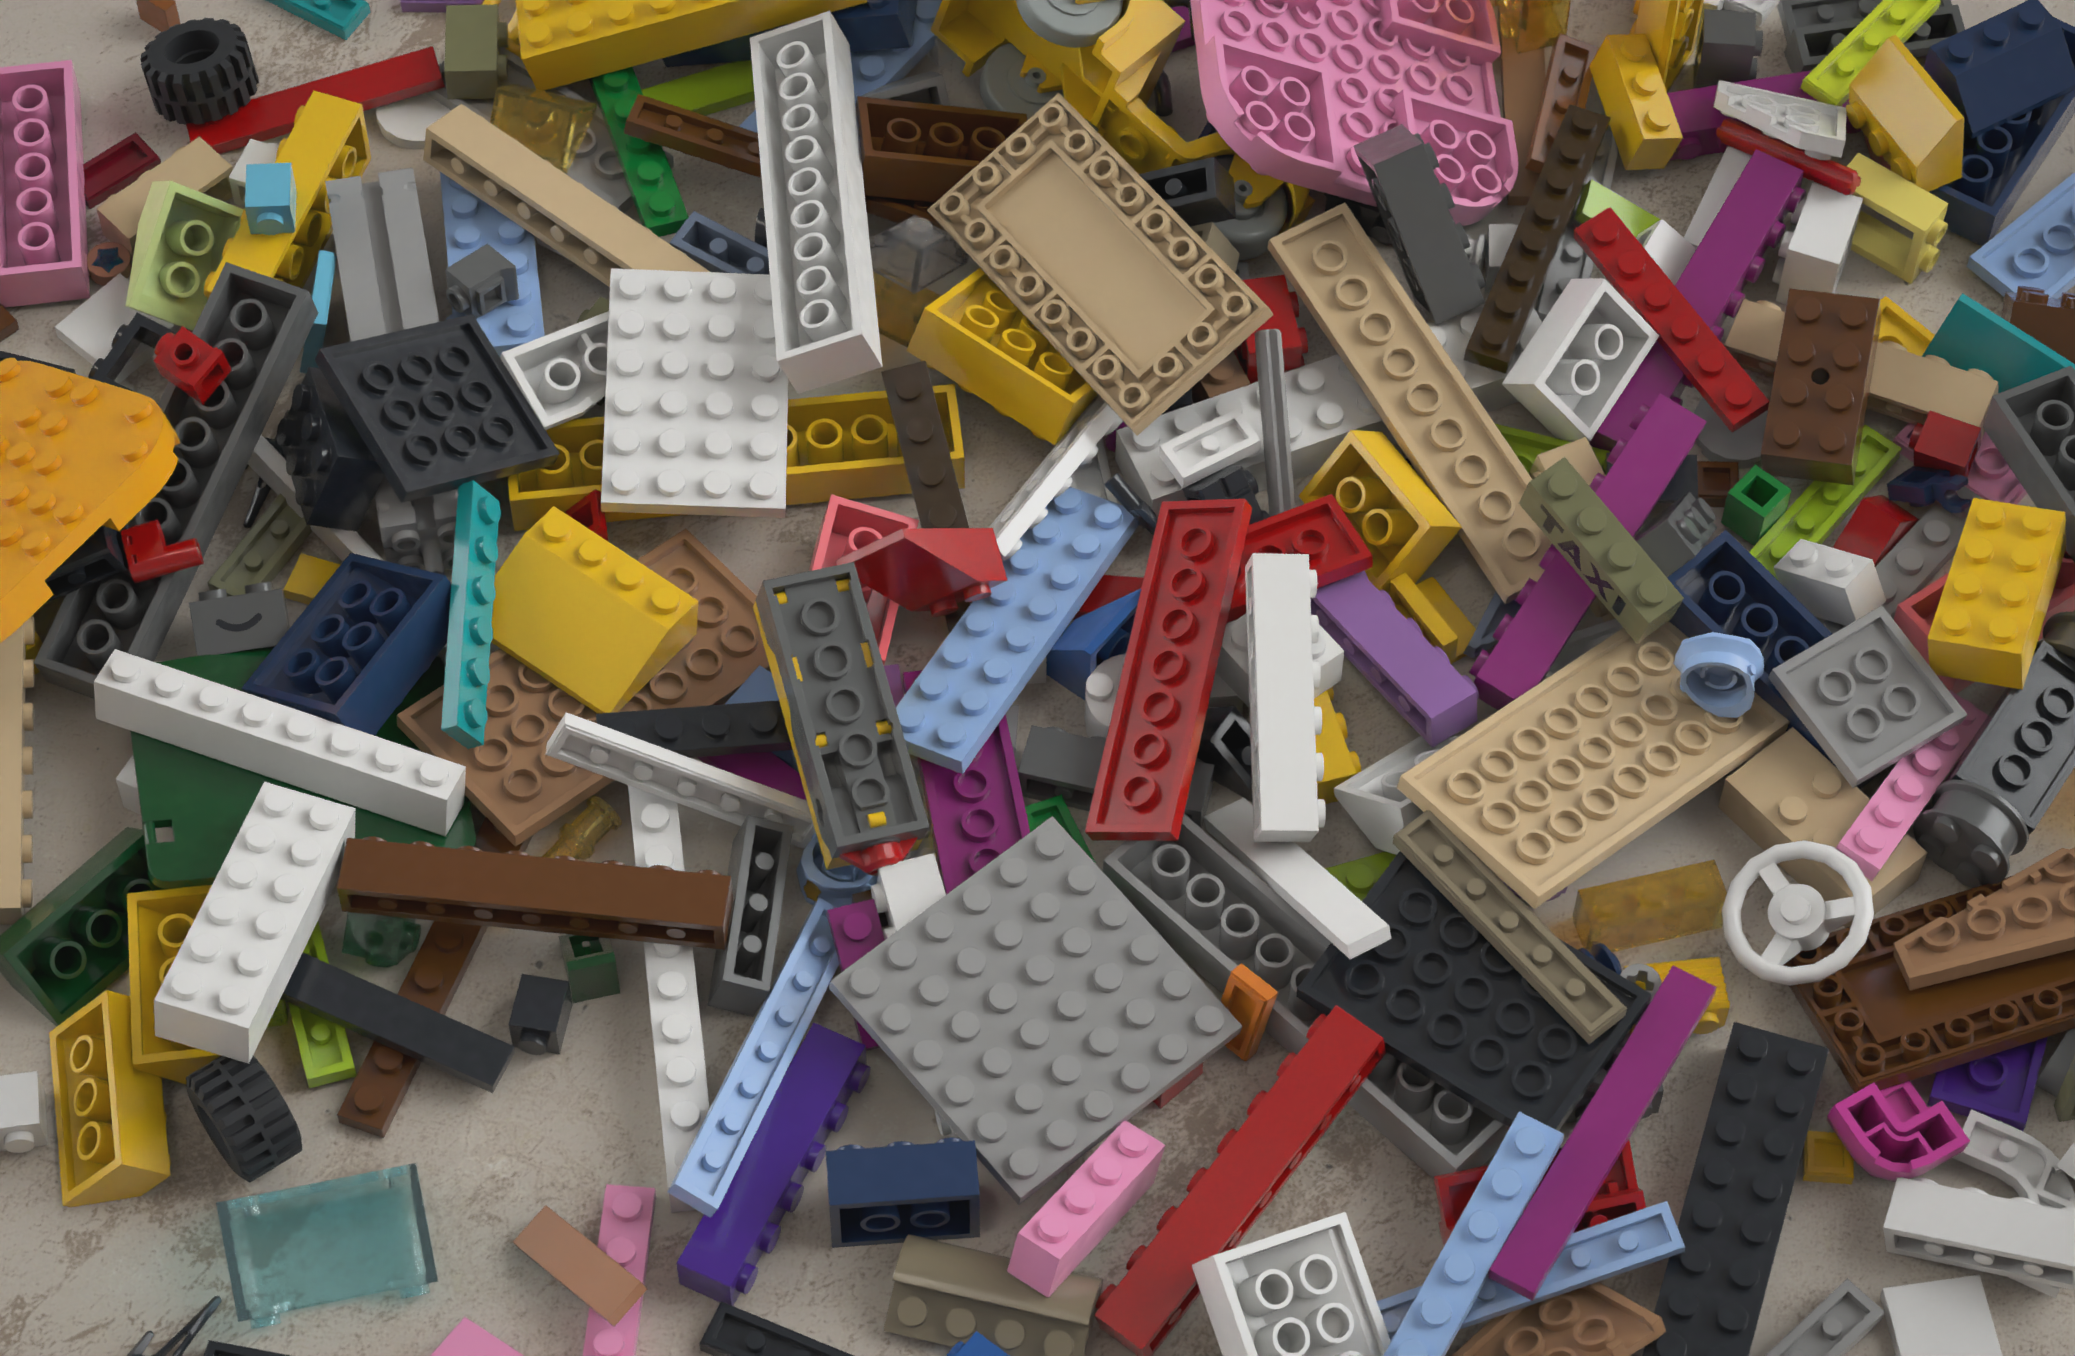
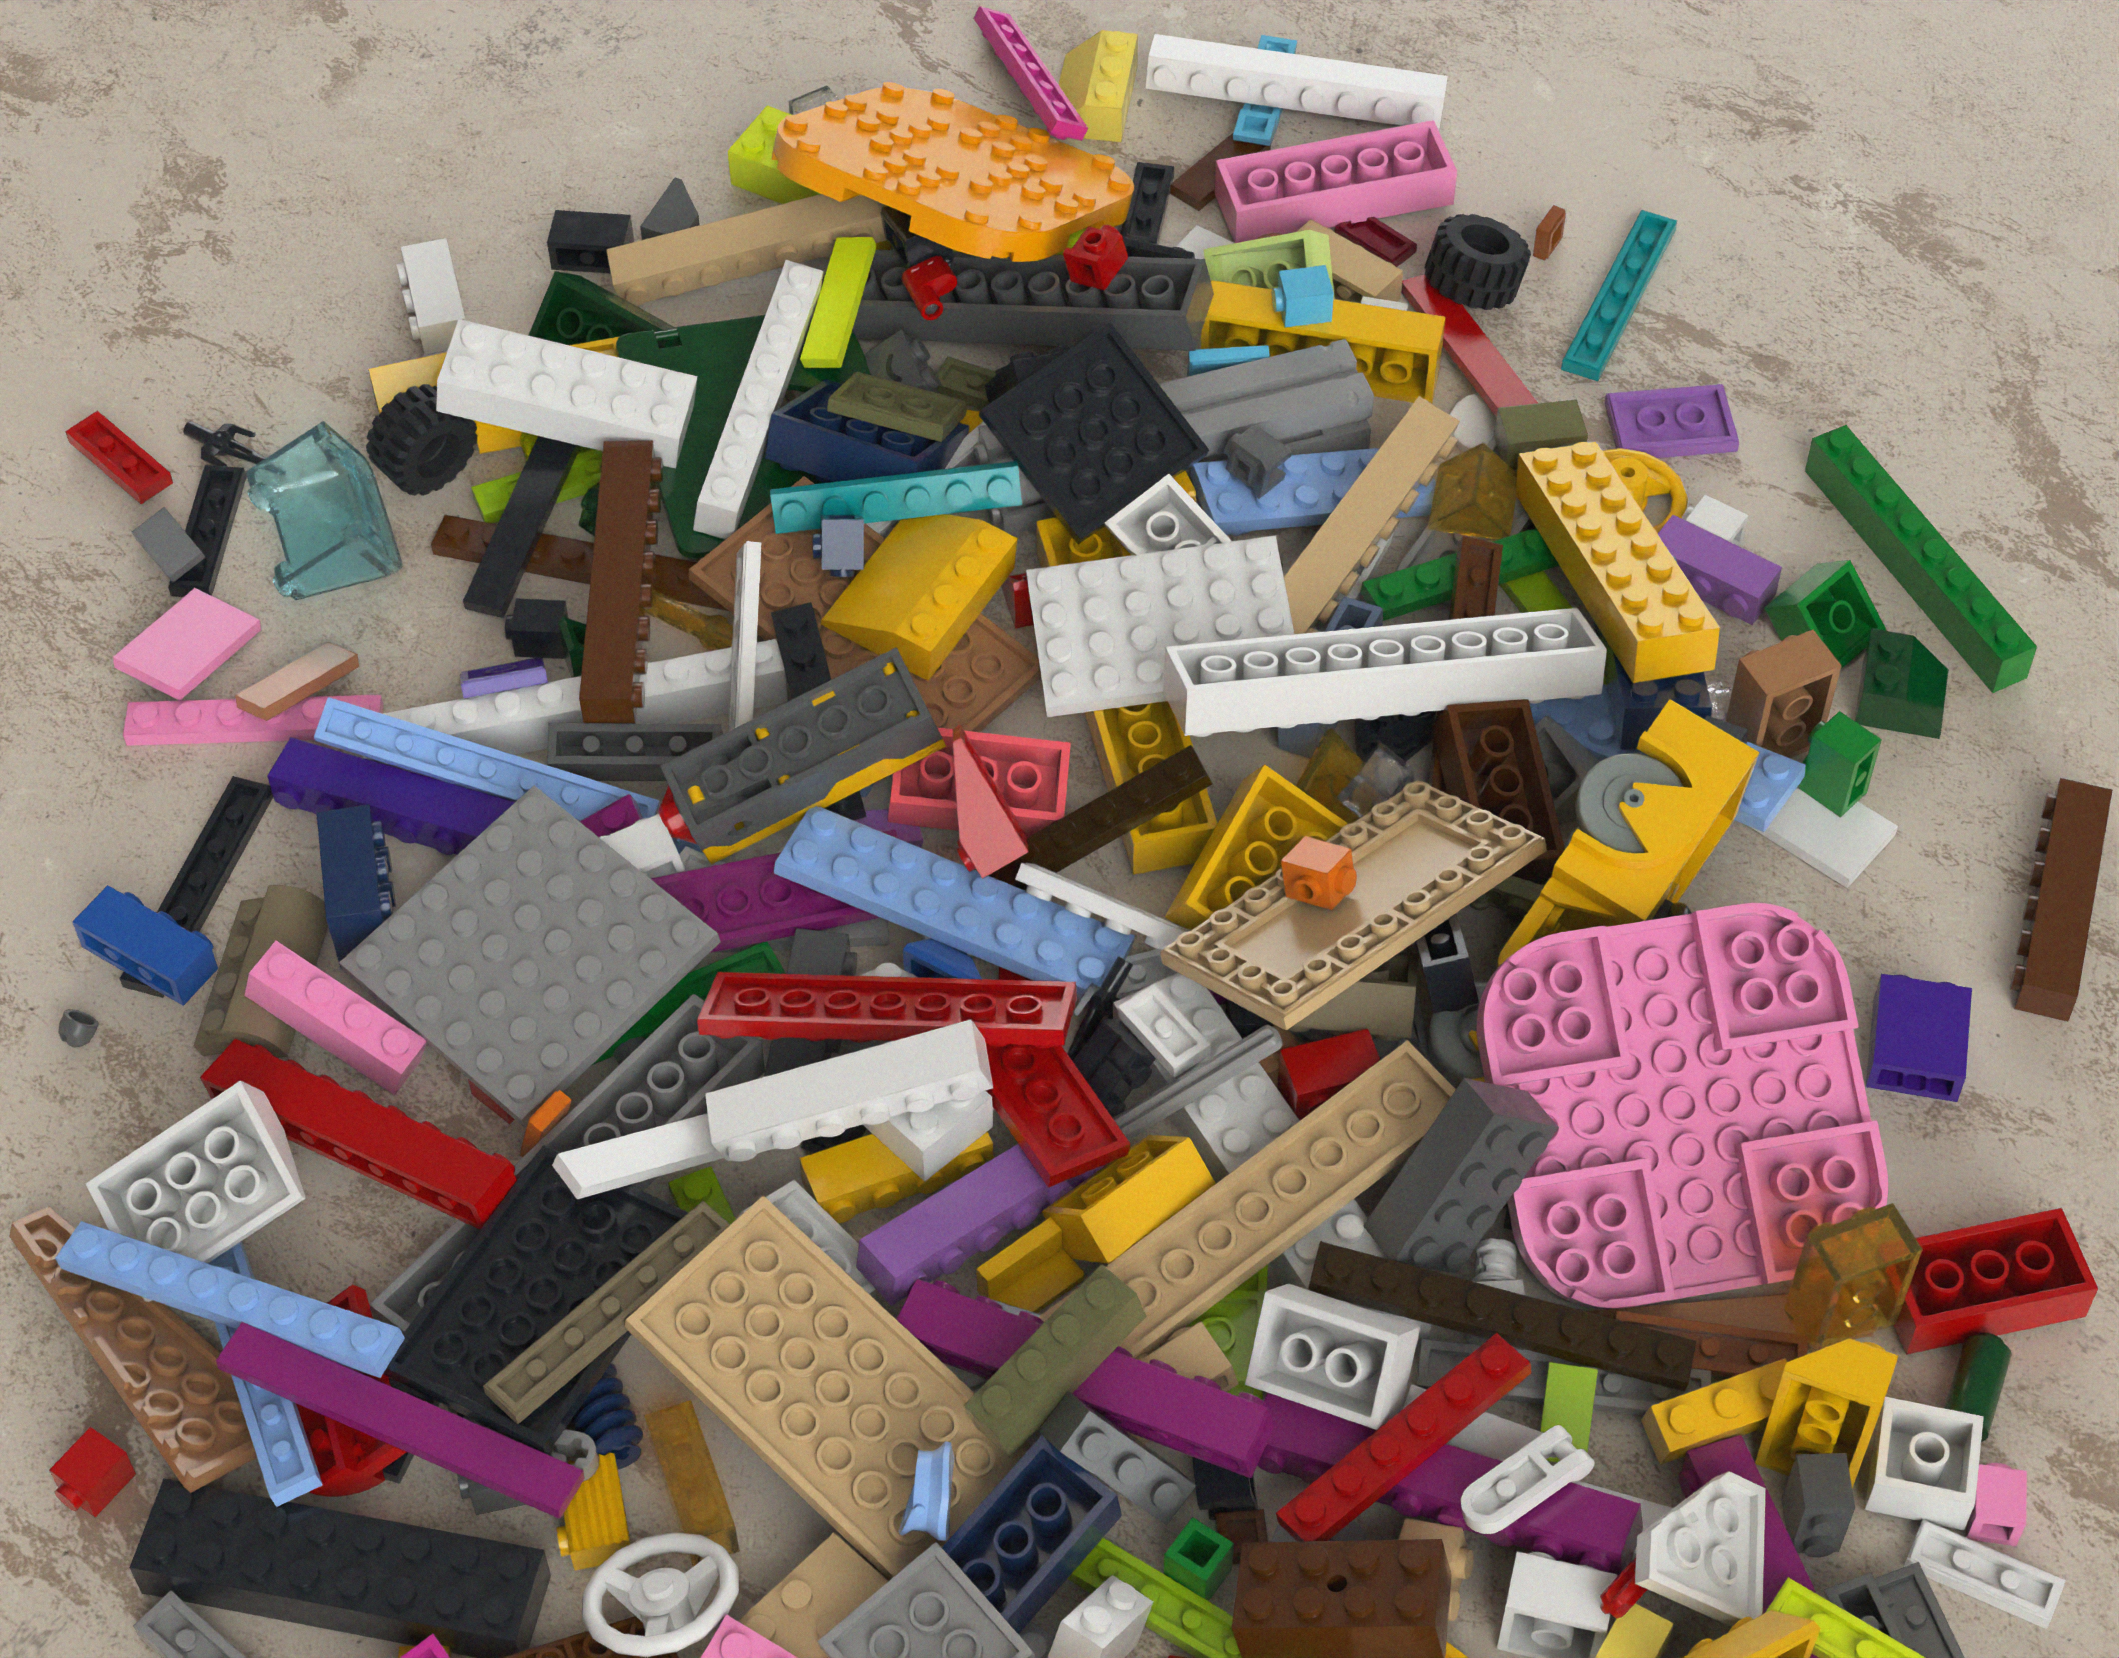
camera: 85 degrees right, 5 degrees down
(92, 641) = (838, 302): none -> neon yellow tile
(321, 609) = (897, 406): none -> olive tile
(523, 672) = (840, 544): none -> brick
(620, 1045) = (503, 677): none -> tile
(1077, 273) = (1318, 873): none -> orange brick
(1730, 227) = (1523, 1481): none -> white plate

